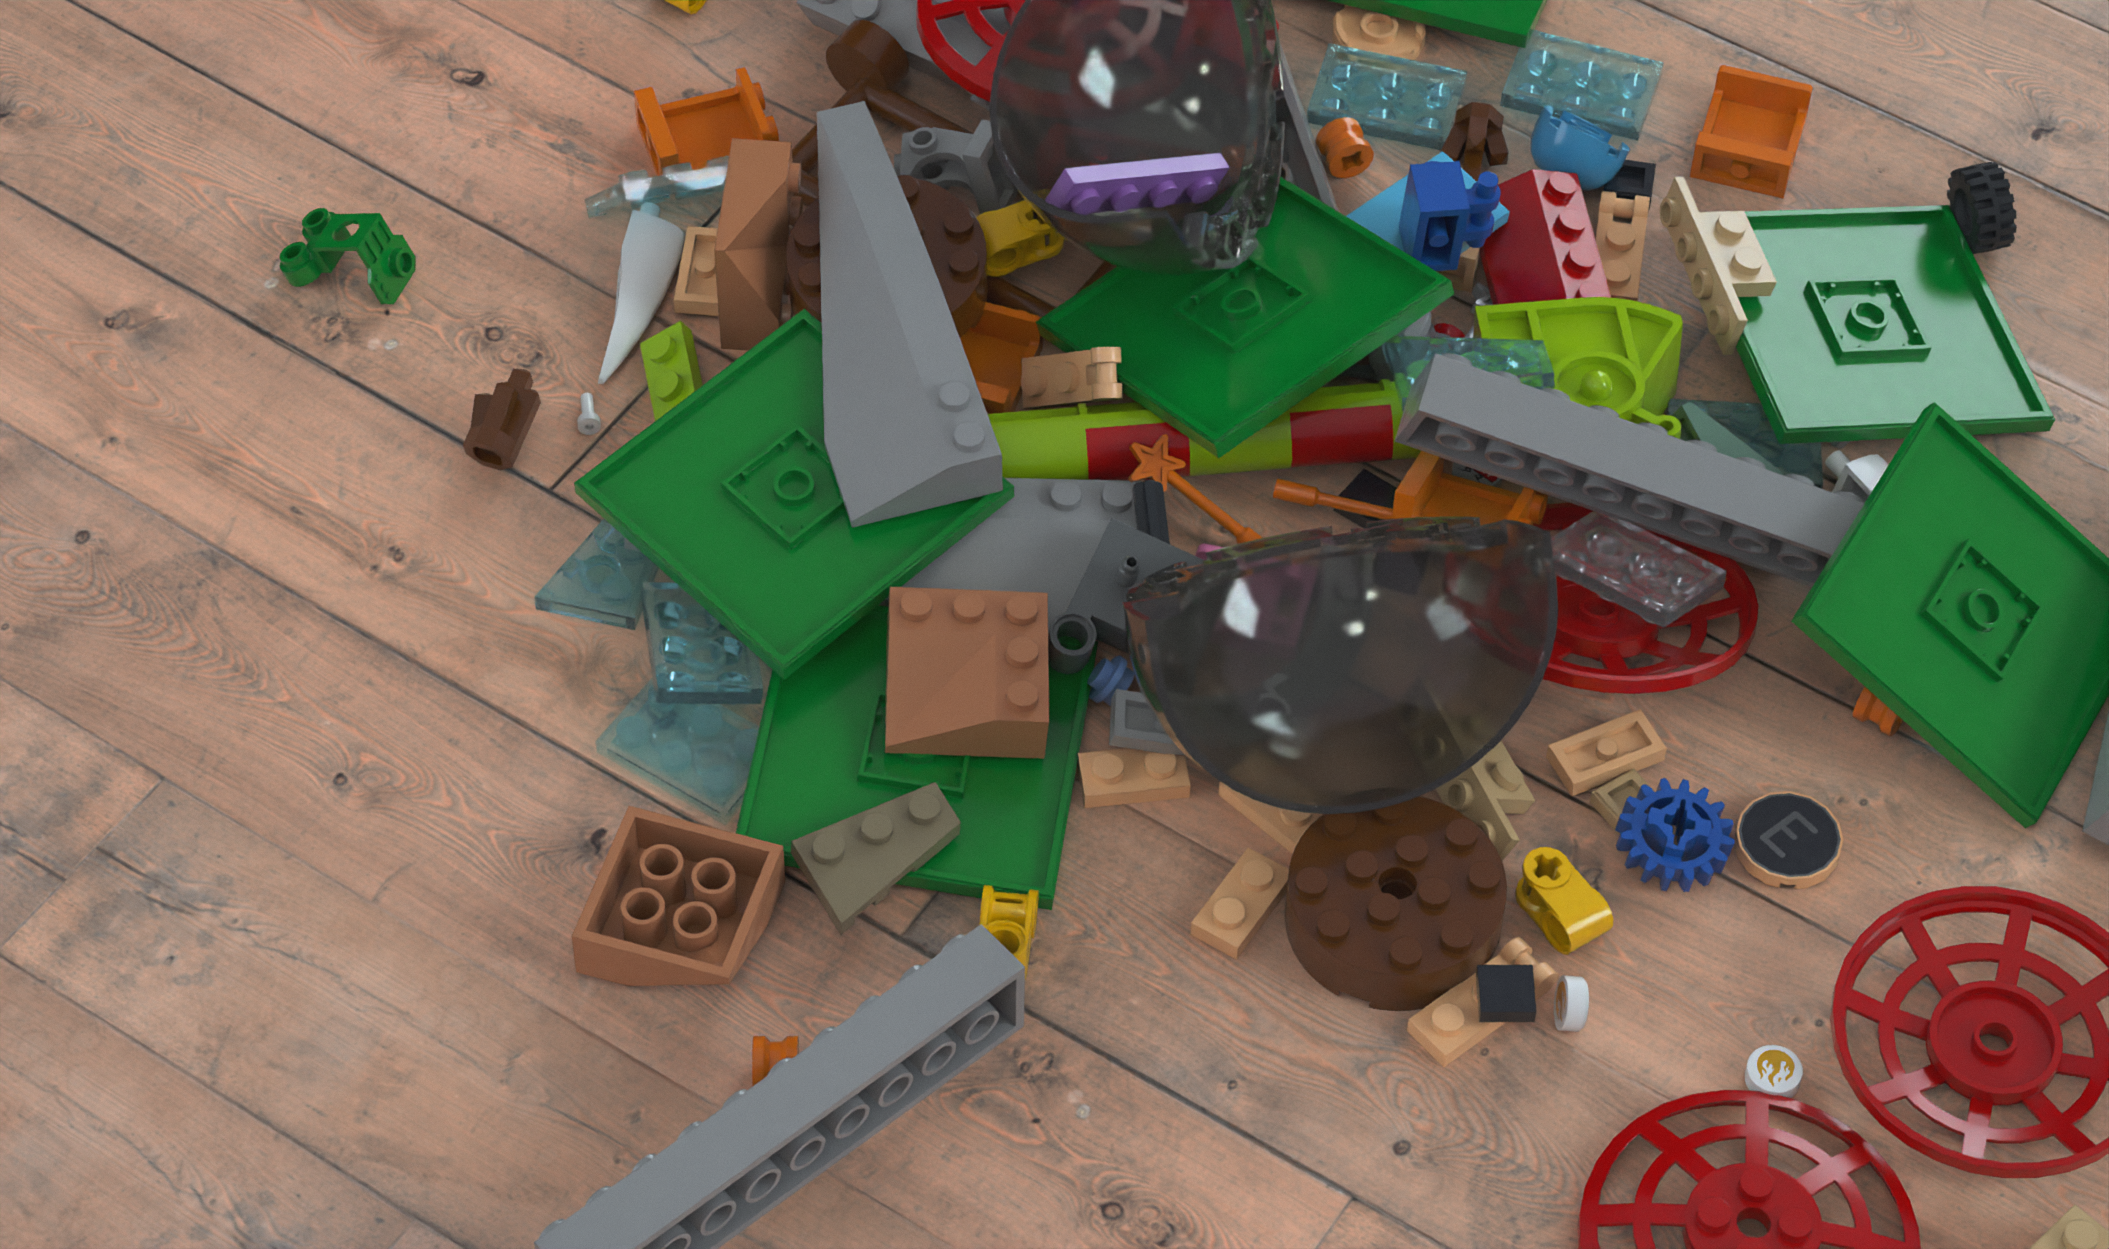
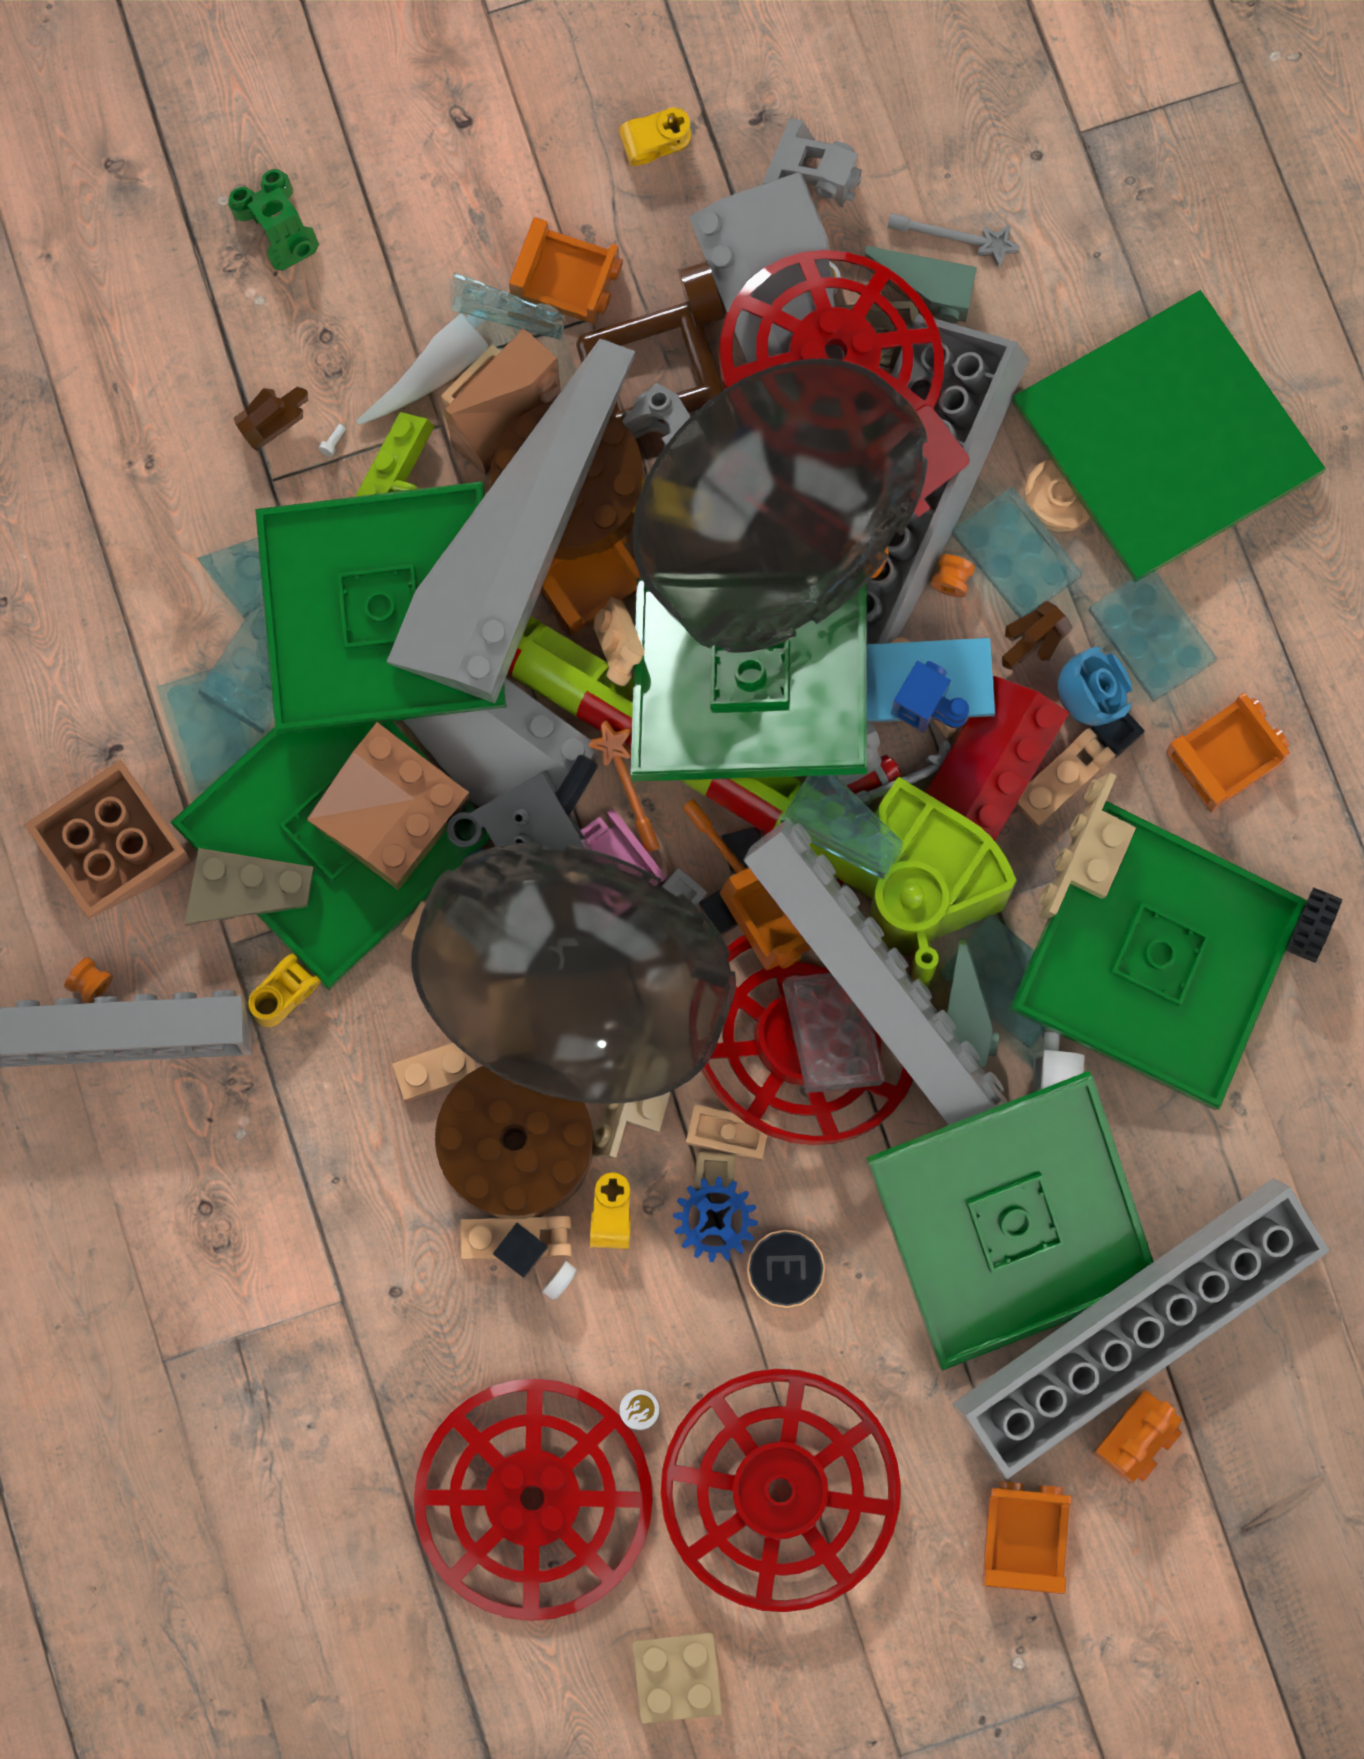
camera: 40 degrees right, 25 degrees up
(1138, 184) = (726, 546): medium lavender plate -> none

